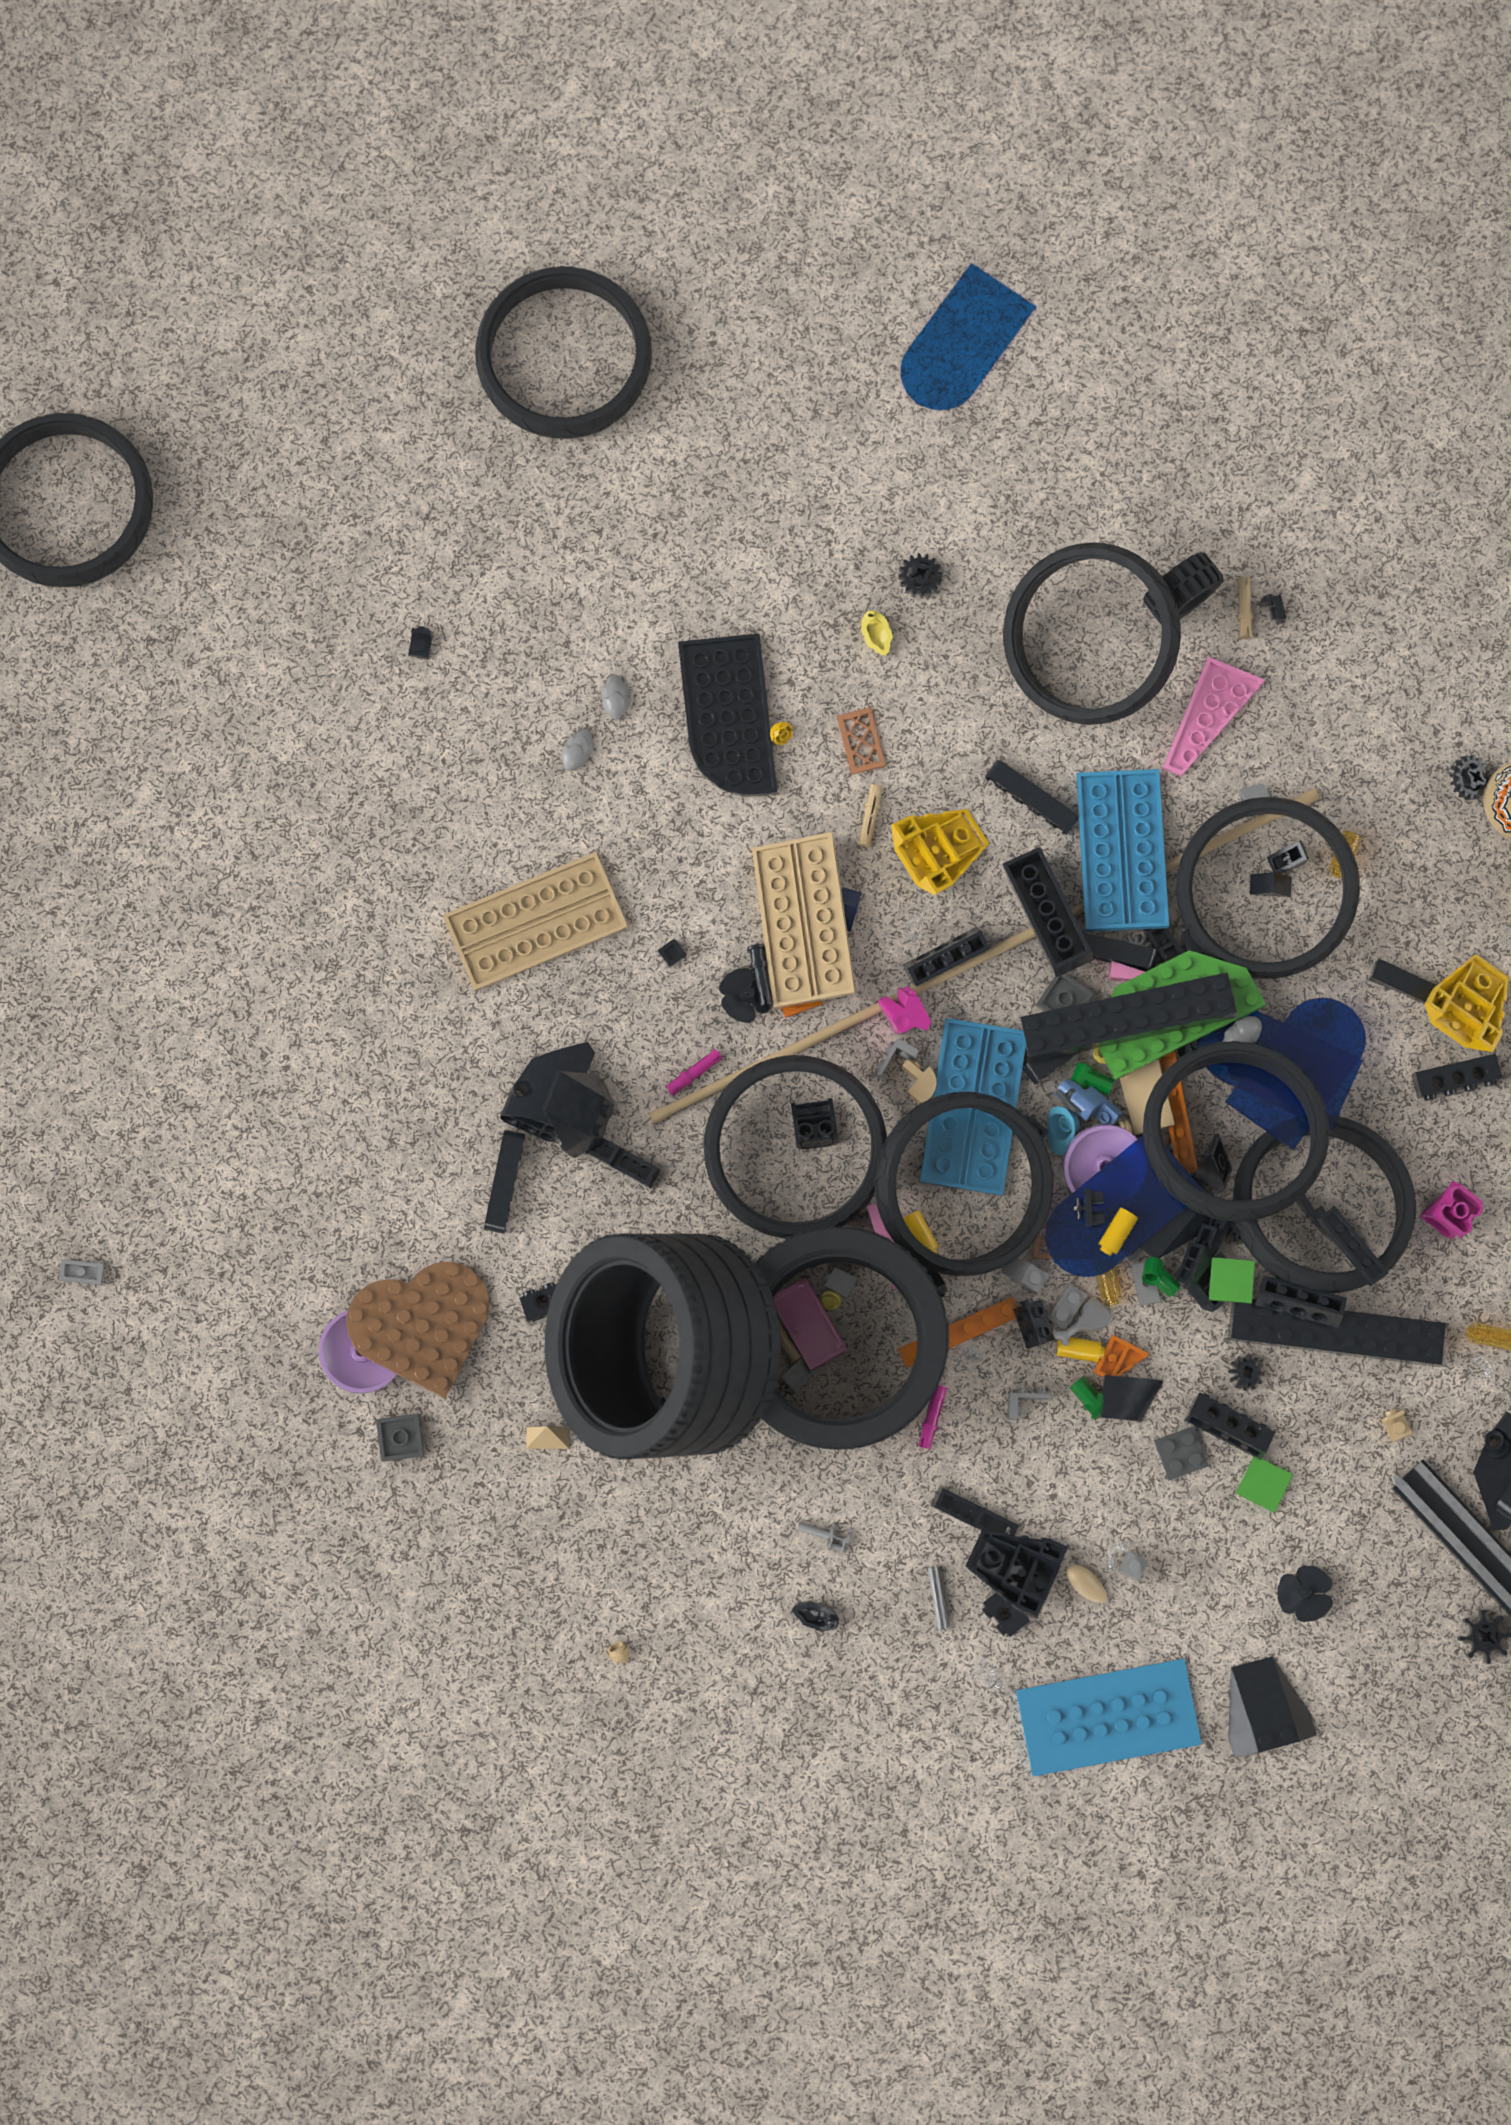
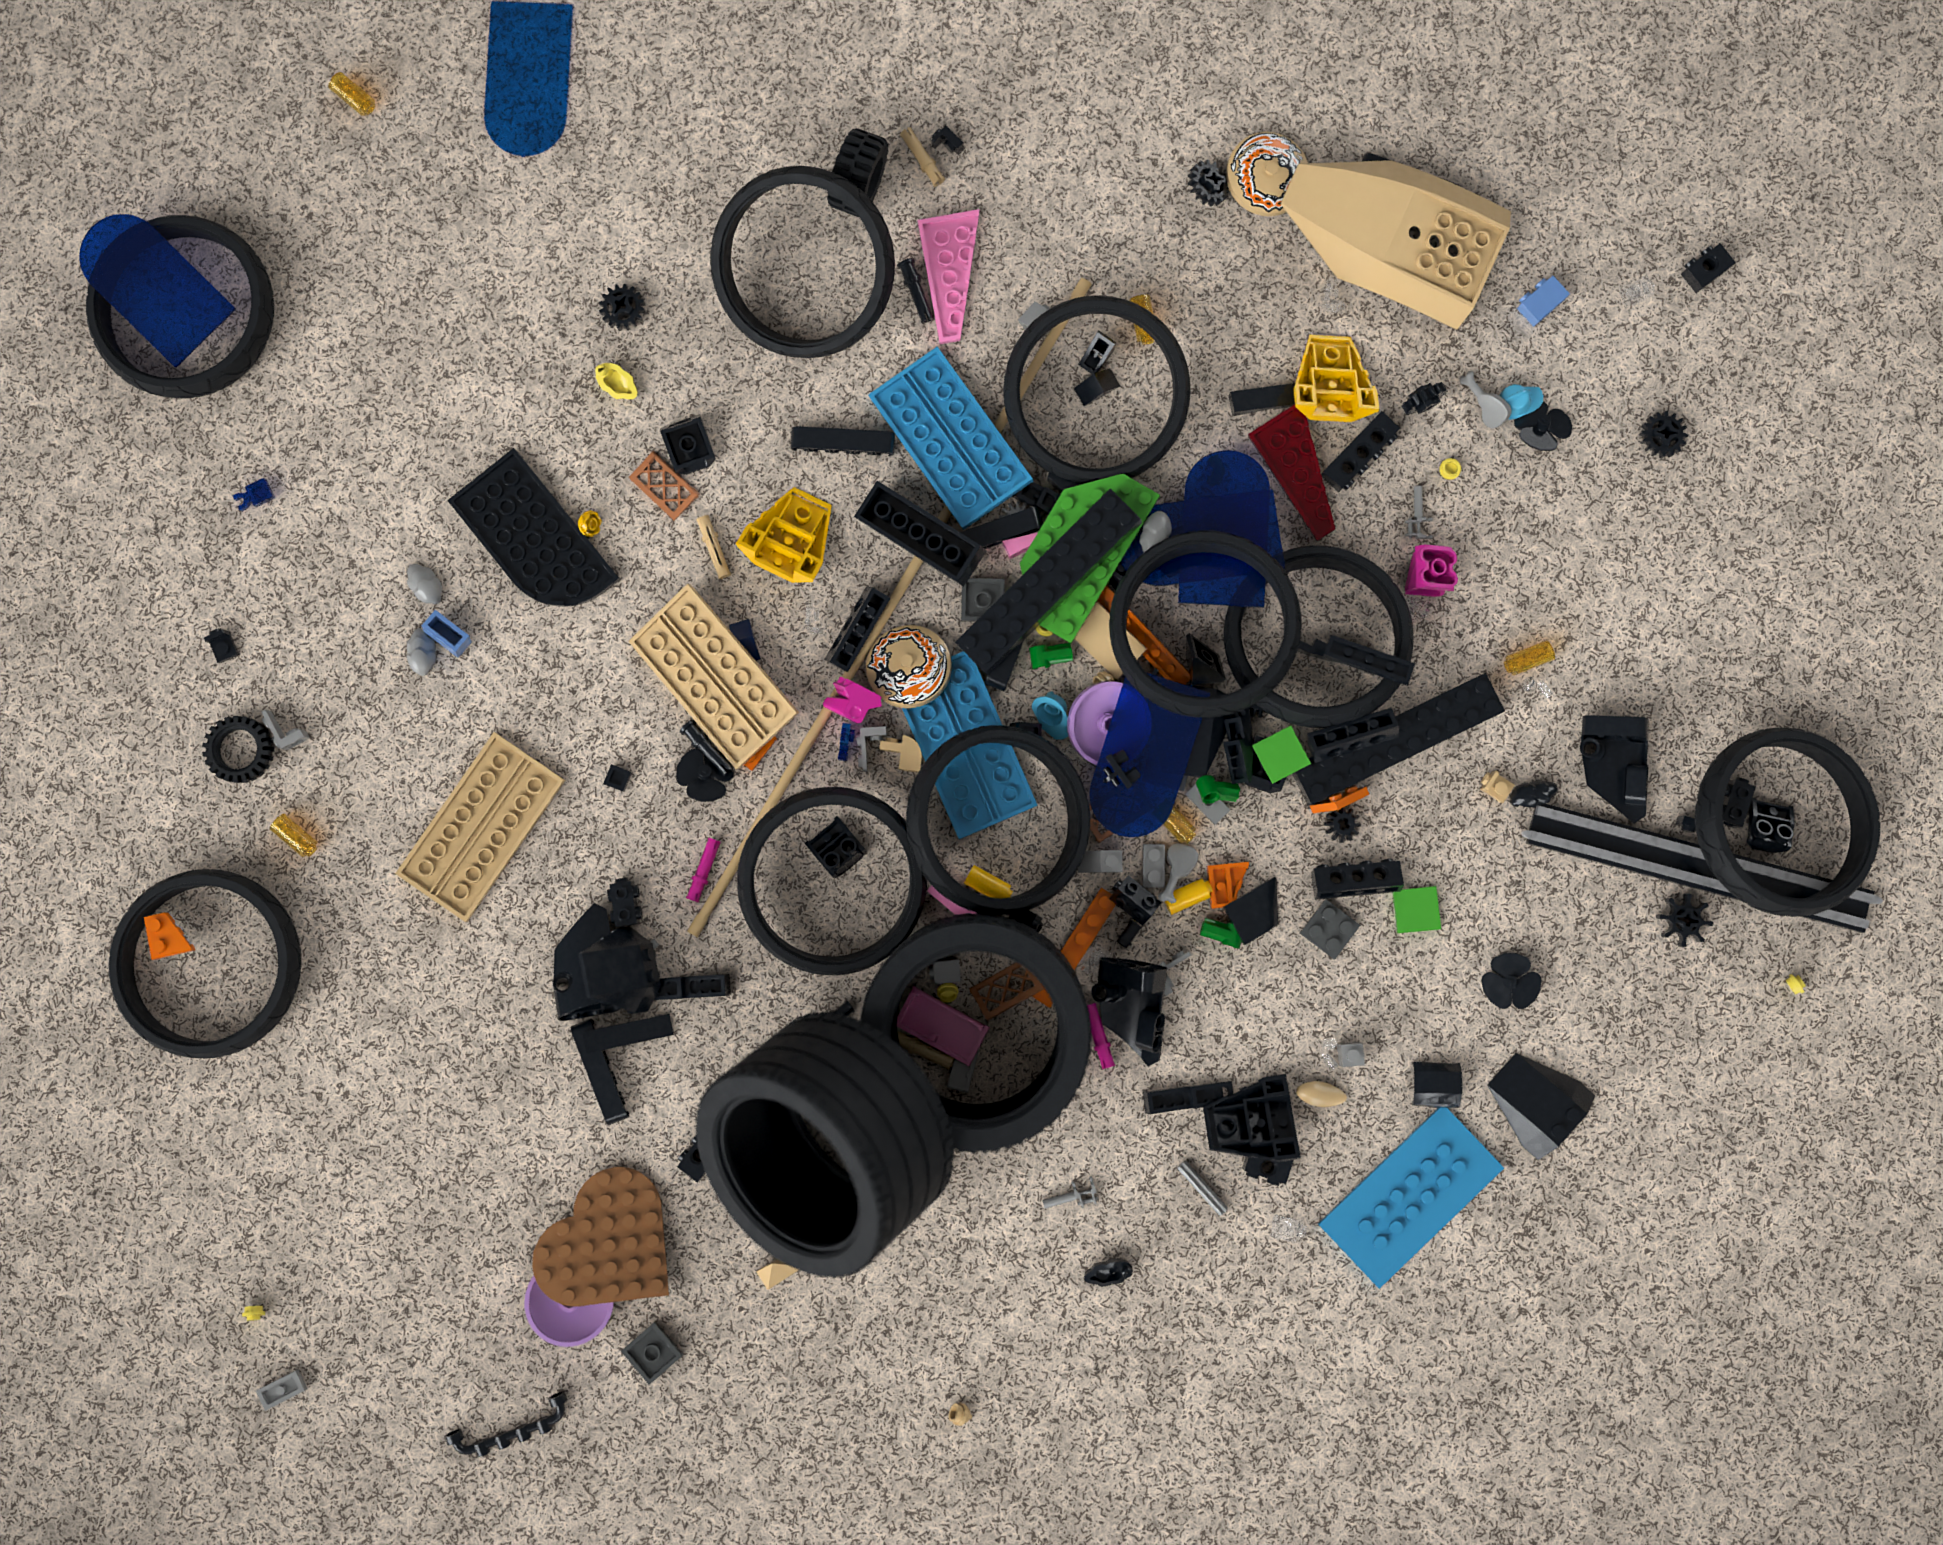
camera: 25 degrees left, 5 degrees up
(99, 1195) = (253, 1313): none -> light yellow plate
(213, 817) = (123, 953): none -> black tyre
(229, 847) = (165, 937): none -> orange wing
(252, 1434) = (503, 1439): none -> black bar
(375, 711) = (215, 740): none -> black tyre
(380, 832) = (294, 835): none -> clear yellow brick
(431, 753) = (293, 737): none -> light grey bracket
(527, 540) = (257, 494): none -> clear blue plate
(548, 1164) = (627, 1033): none -> black slope
(554, 323) = (152, 285): none -> clear blue piece
(608, 748) = (446, 633): none -> medium blue brick
(615, 1052) = (624, 901): none -> black brick
(810, 268) = (352, 94): none -> clear yellow brick
(869, 1341) = (1004, 1006): none -> nougat window
(881, 1038) = (847, 736): none -> clear blue plate
(902, 720) = (688, 445): none -> black slope
(969, 1014) = (908, 666): none -> dish
(977, 1407) = (1133, 1003): none -> black panel
(1010, 1349) = (1128, 934): none -> black pin
(1087, 1102) = (1060, 678): medium blue plate -> none
(1117, 1232) = (1157, 776): yellow brick -> none
(1172, 704) = (912, 281): none -> black pin
(1188, 1638) = (1437, 1084): none -> black slope
(1256, 1350) = (1340, 800): none -> orange wing
(1396, 1044) = (1292, 459): none -> dark red wing
(1423, 1450) = (1533, 793): none -> black arm
(1472, 1160) = (1418, 514): none -> light grey piece

